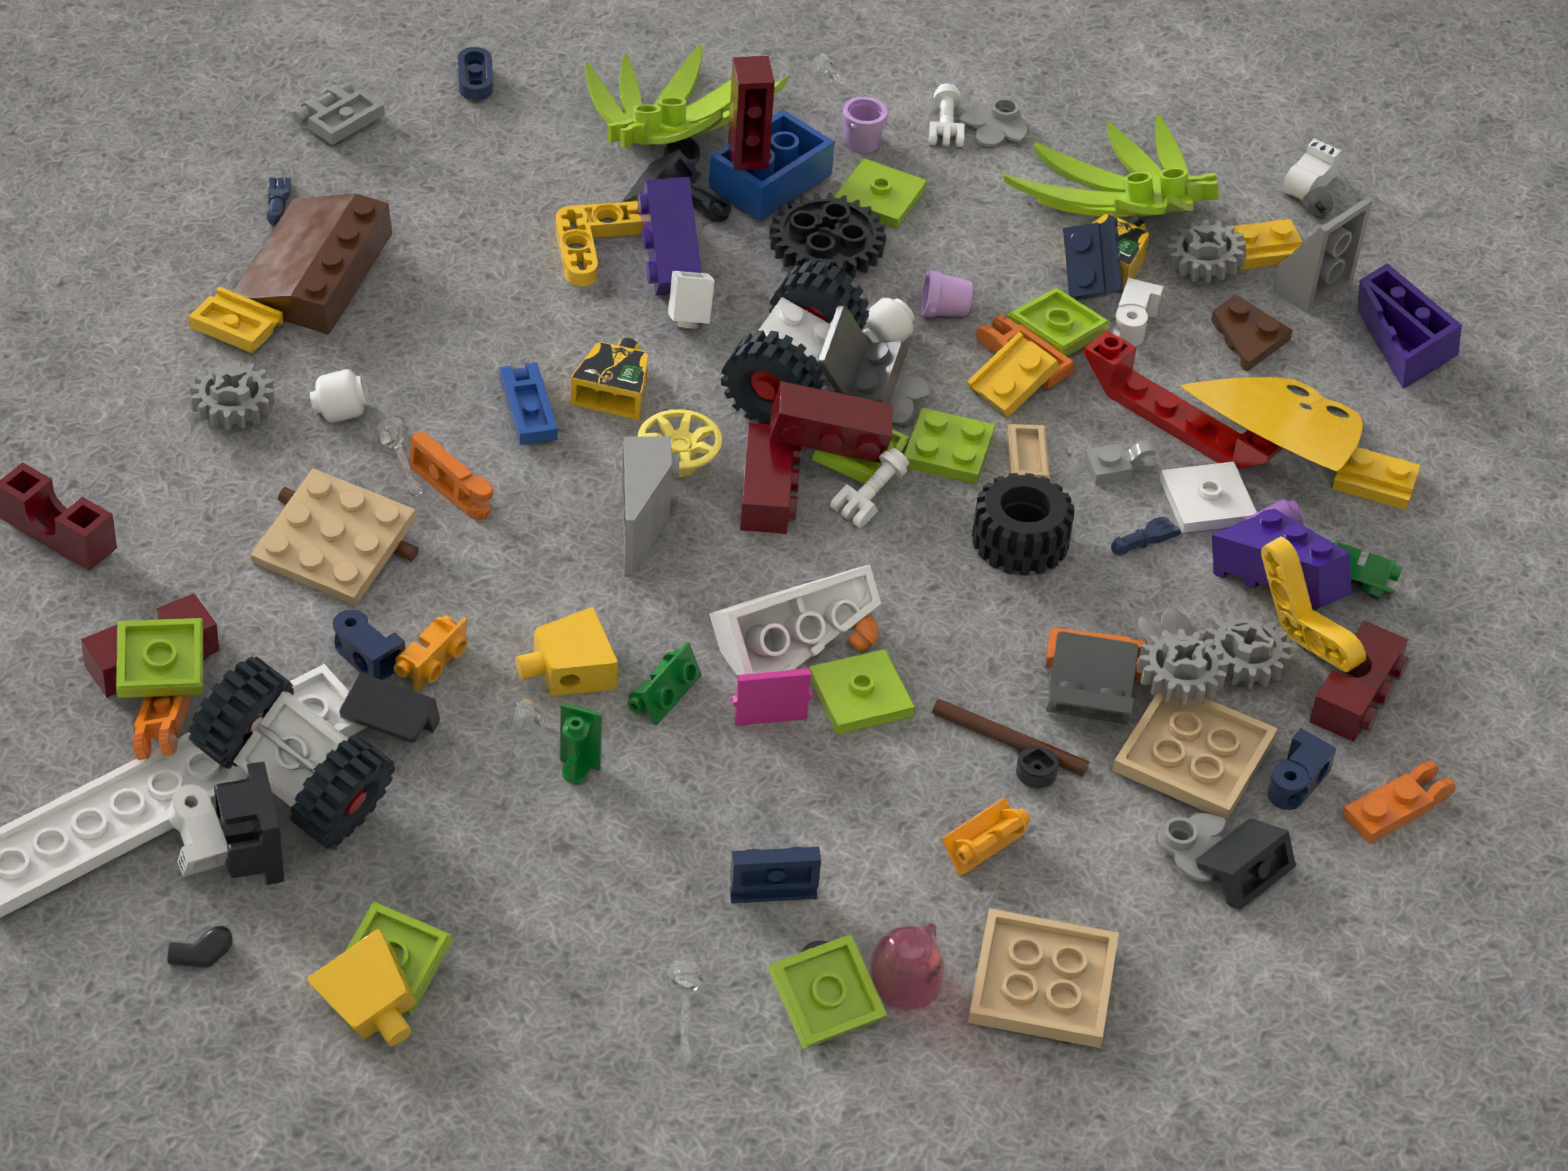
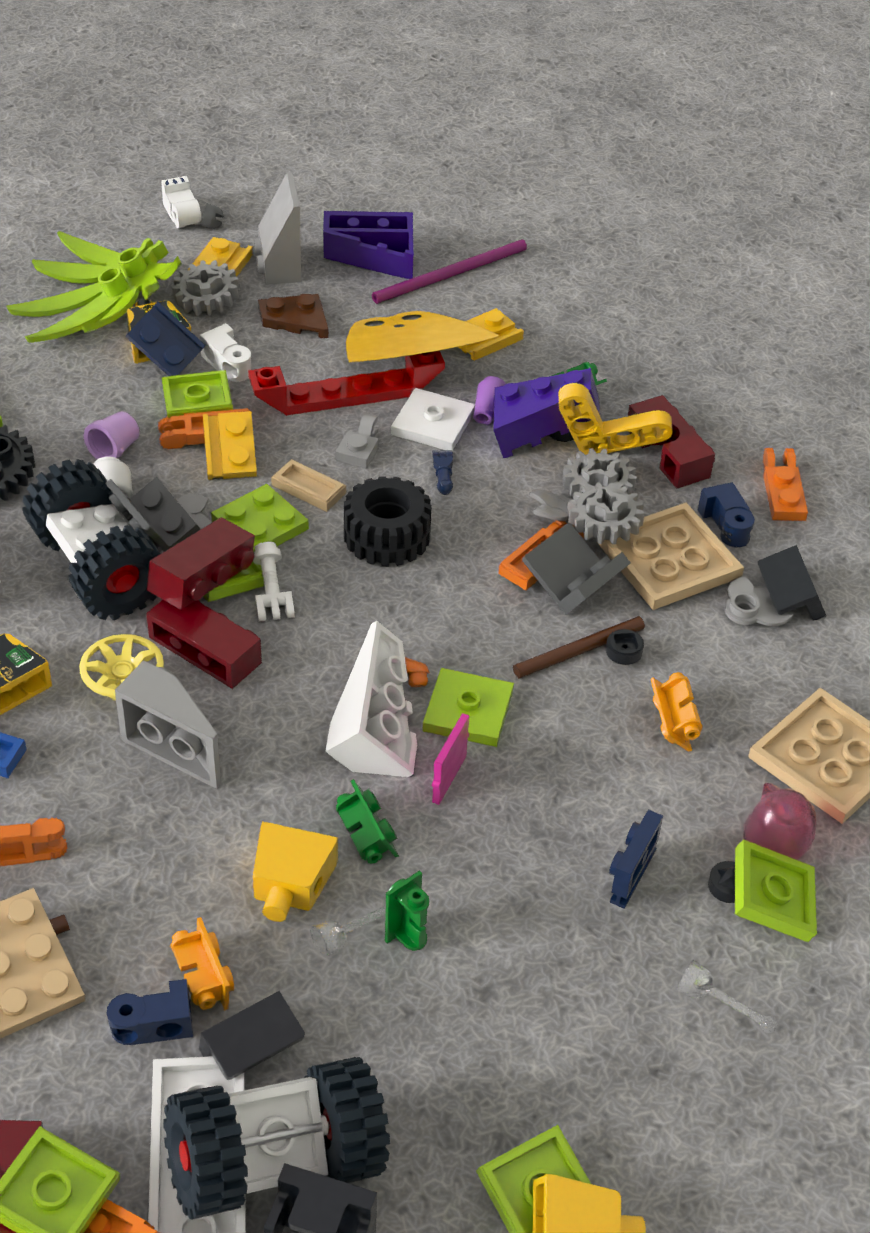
camera: 55 degrees left, 0 degrees up
(1446, 407) = (448, 271): none -> magenta piece

